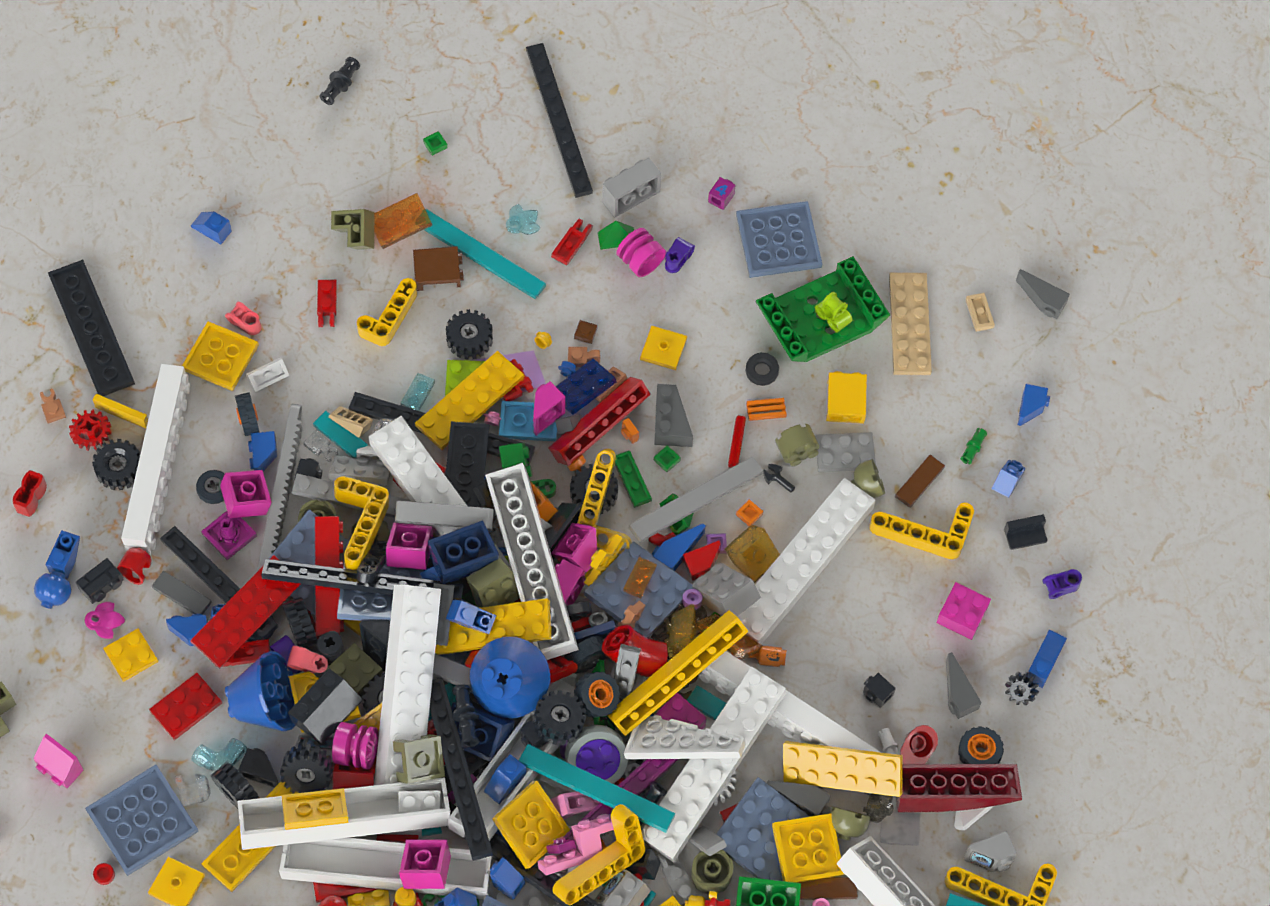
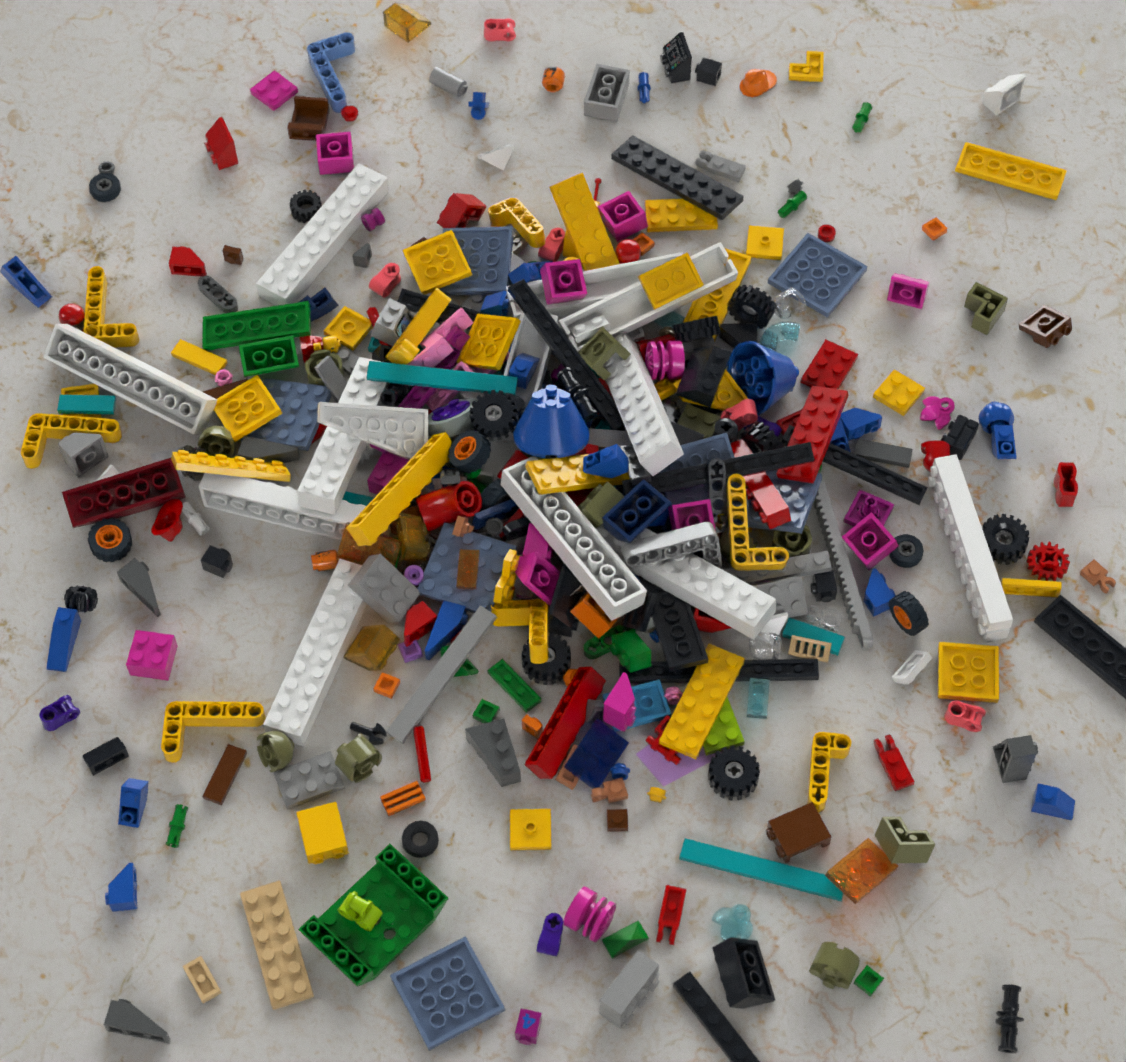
camera: 165 degrees right, 5 degrees down
(224, 260) = (1015, 757): none -> dark grey wedge
(458, 153) = (835, 965): none -> olive brick
(533, 177) = (743, 973): none -> black slope

